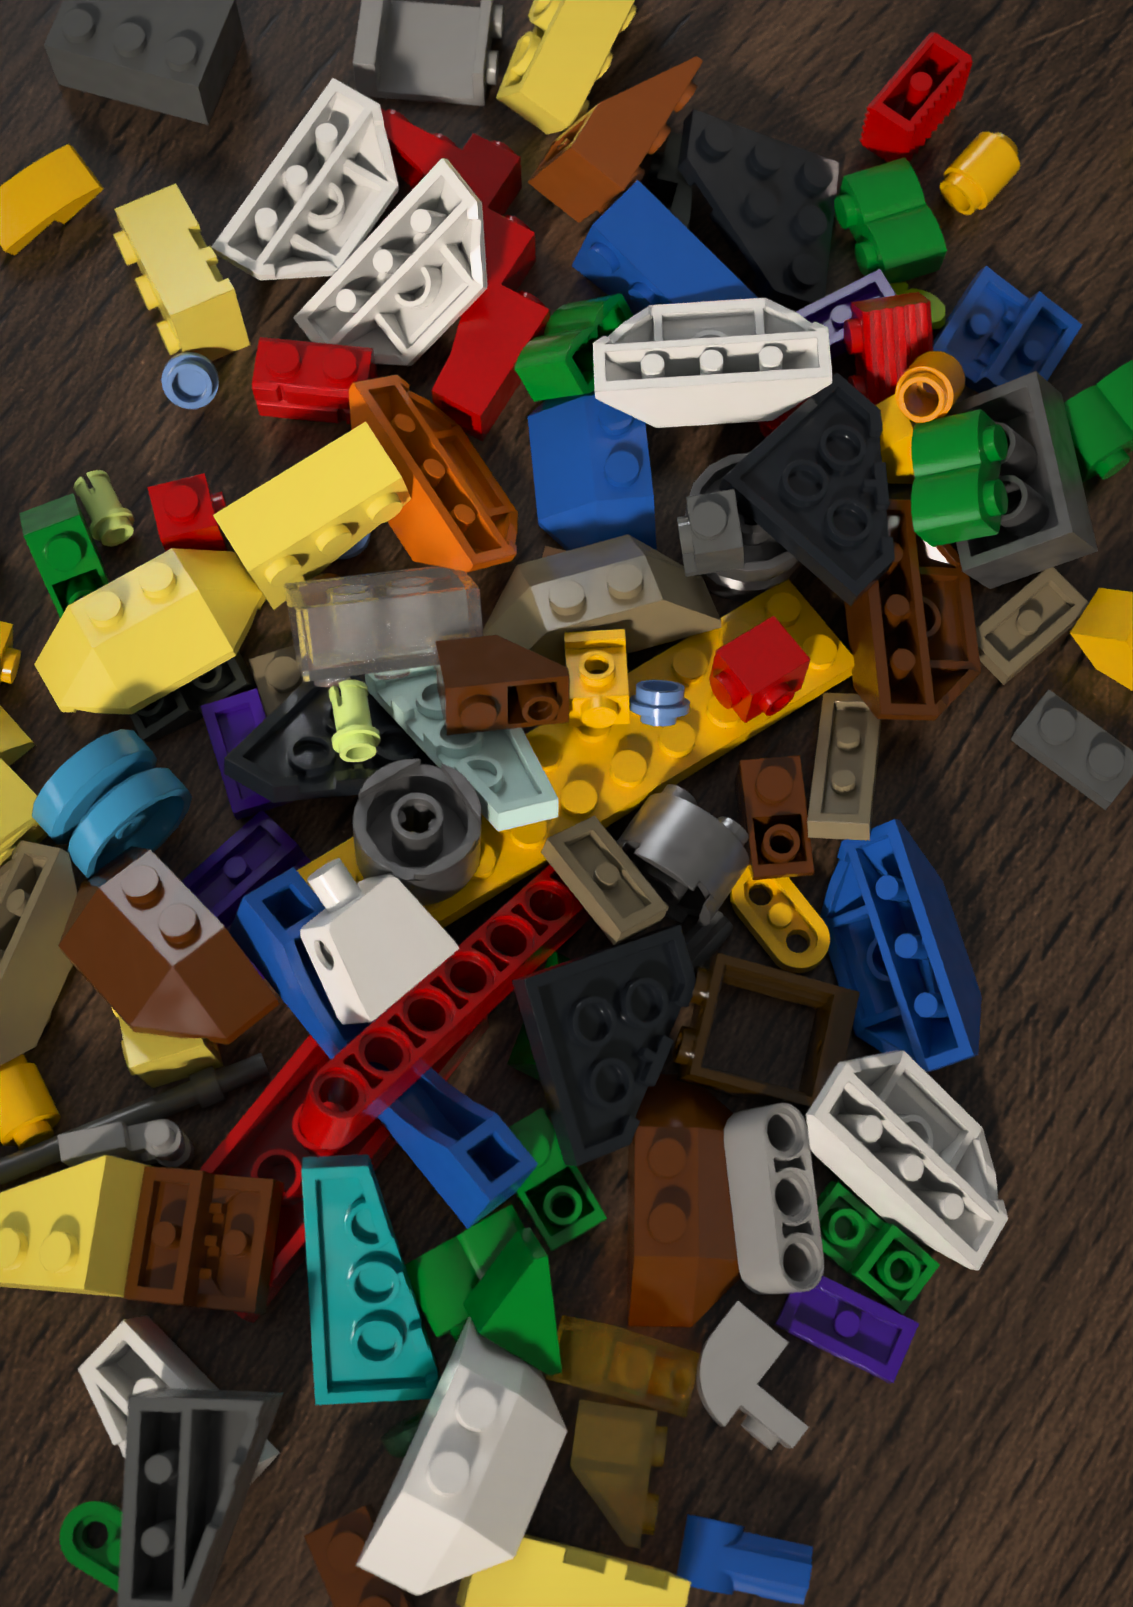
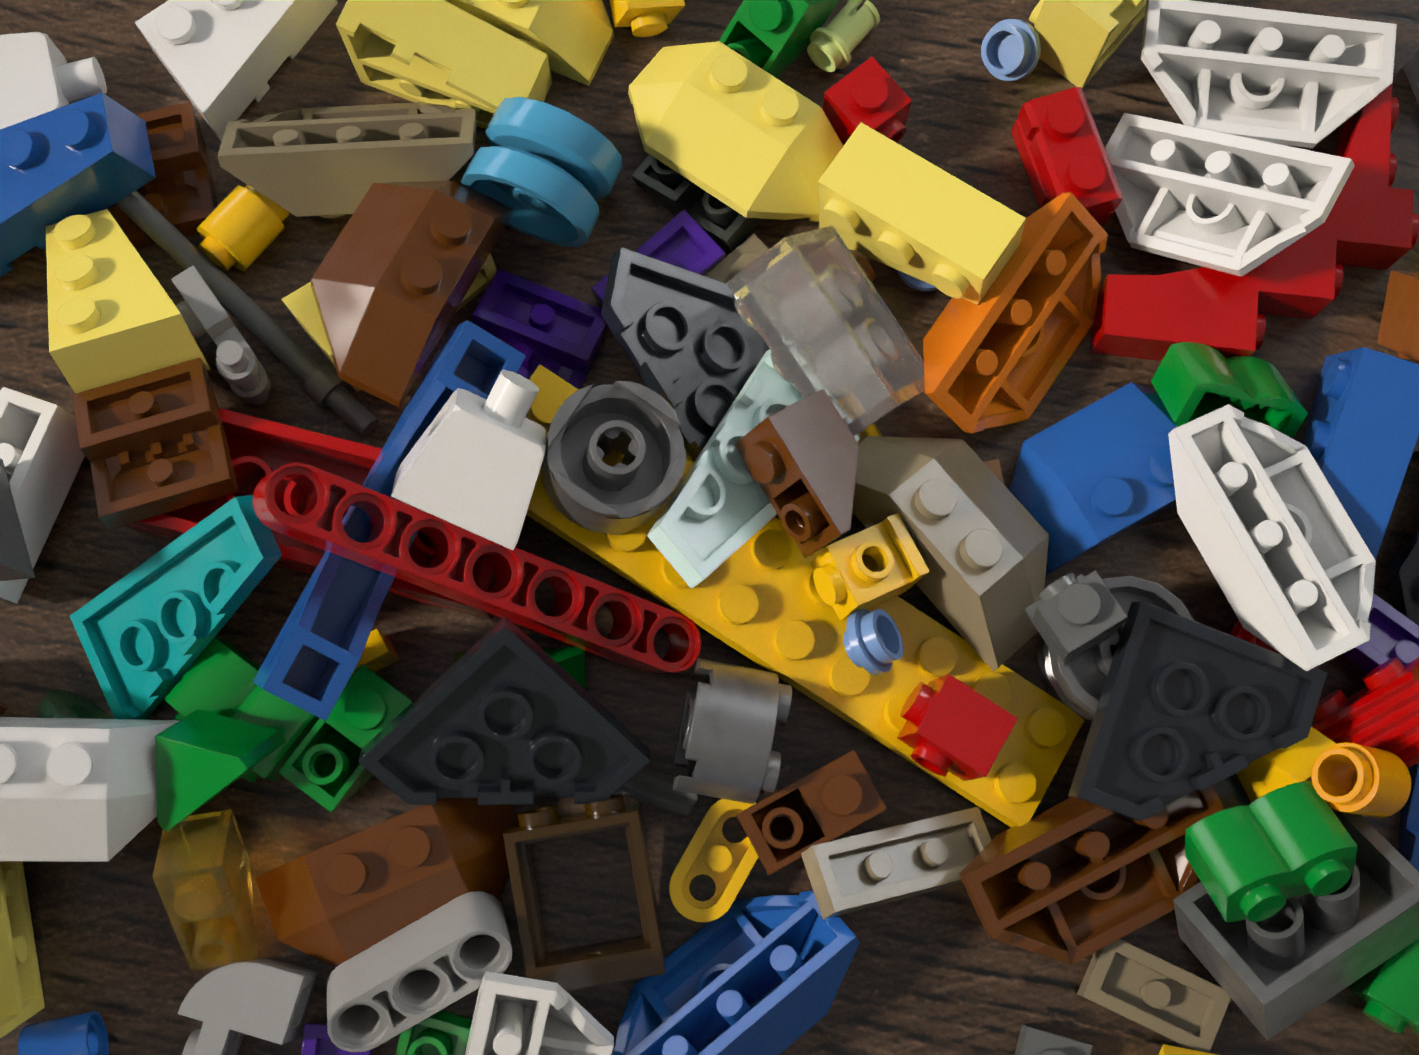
camera: 65 degrees right, 5 degrees up
(354, 734) = (700, 357): yellowish green pin -> none
(604, 880) = (660, 665): dark tan plate -> none
(614, 1461) = (107, 920): clear yellow slope -> none

